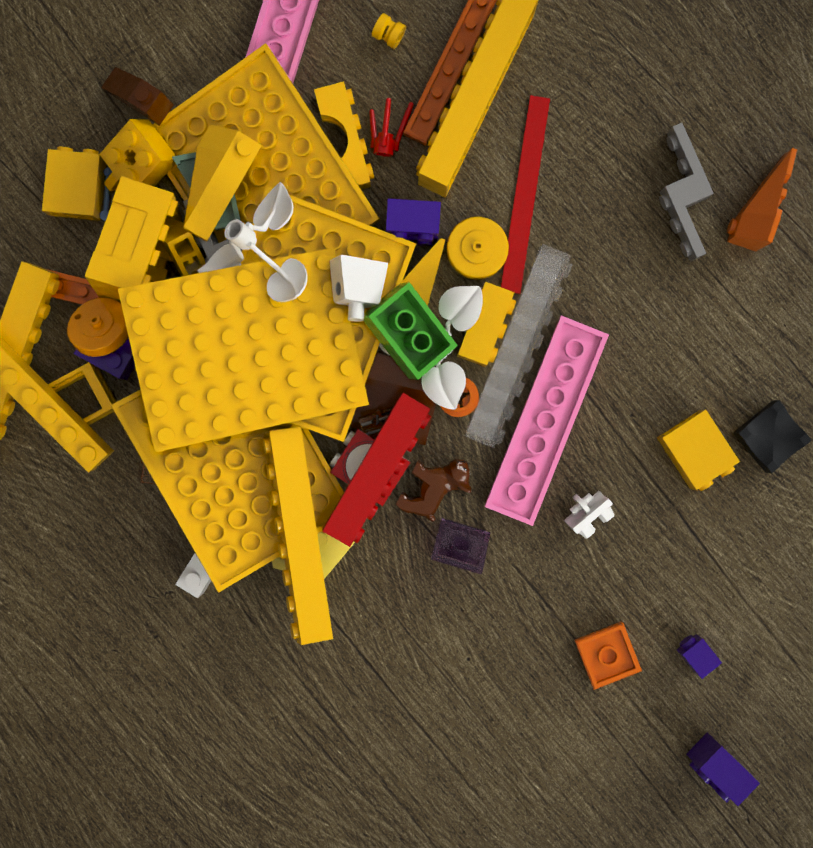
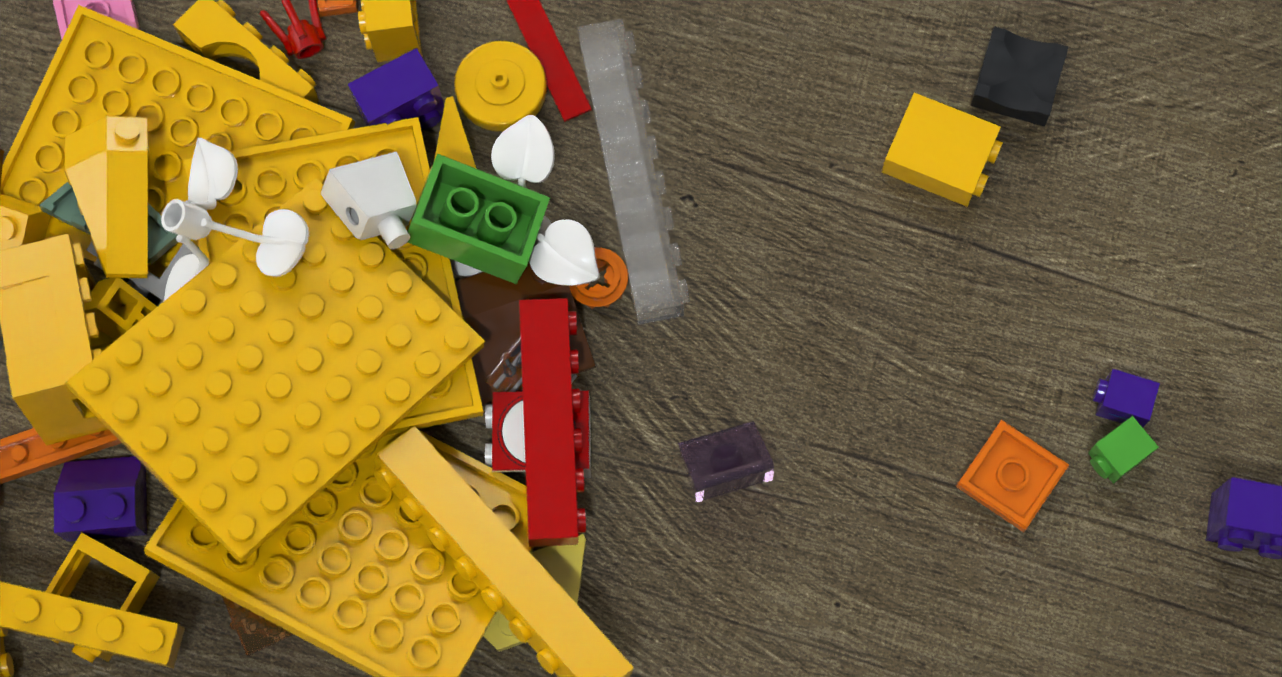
camera: 30 degrees left, 15 degrees down
(98, 327) = (69, 472): light orange wheel -> none
(435, 485) = (641, 403): reddish brown animal -> none
(481, 338) = (576, 167): yellow brick -> none
(546, 420) = (729, 238): bright pink plate -> none
(586, 511) = (854, 312): white hips -> none
(675, 681) = (1122, 450): none -> bright green brick

